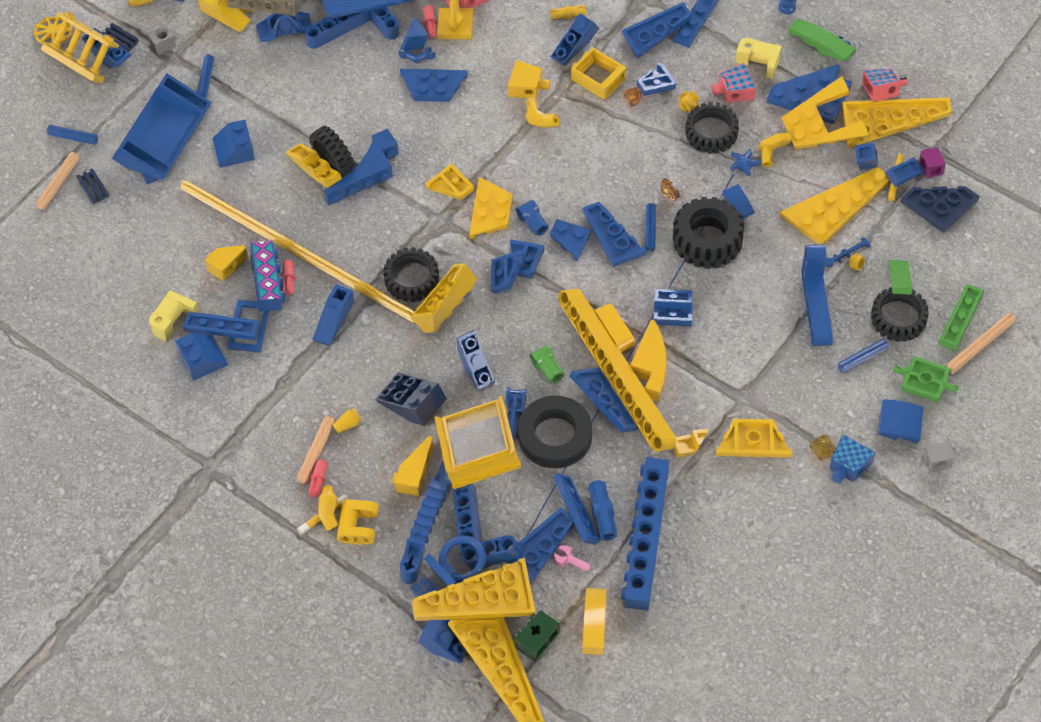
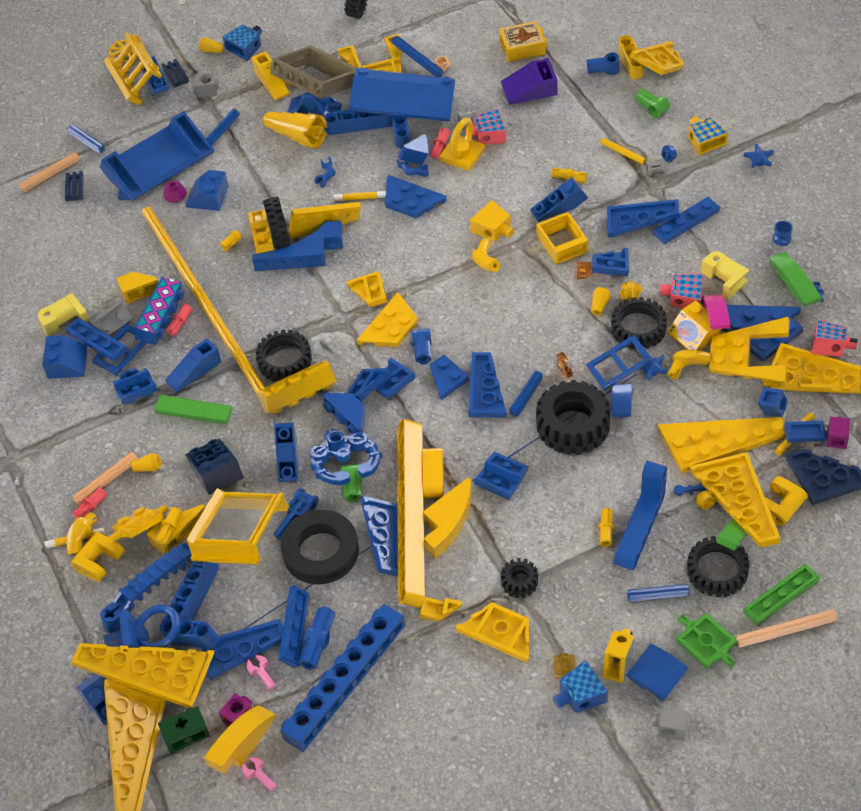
camera: 30 degrees right, 5 degrees down
(200, 156) = (174, 192): none -> magenta cone
(221, 298) = (112, 318): none -> light grey bracket
(283, 51) = (299, 127): none -> yellow cone
(287, 354) = (134, 385): none -> blue slope
(288, 184) = (231, 240): none -> yellow pin
(341, 86) = (330, 173): none -> blue arm
(356, 355) = (193, 409): none -> bright green tile
(361, 134) = (308, 220): none -> yellow wing
(375, 102) = (359, 196): none -> yellow bar
(379, 476) = (137, 523): none -> yellow plate
(413, 466) = (168, 525): none -> yellow axle
(503, 302) = (346, 409): none -> blue slope
(520, 336) = (340, 447): none -> blue piece
(570, 608) = (234, 703): none -> magenta brick
(622, 644) = (258, 773): none -> bright pink bar
(665, 119) = (599, 301): none -> yellow cone
(706, 163) = (625, 372): none -> blue window
(740, 398) = (519, 568): none -> black tyre
(762, 114) = (692, 328): none -> yellow slope
(779, 90) = (717, 311): none -> dark pink slope
(789, 317) = (606, 527): none -> yellow axle
(865, 411) = (621, 647): none -> yellow torso
(885, 245) = (740, 494): none -> yellow wing
(927, 236) = (792, 496): none -> yellow connector

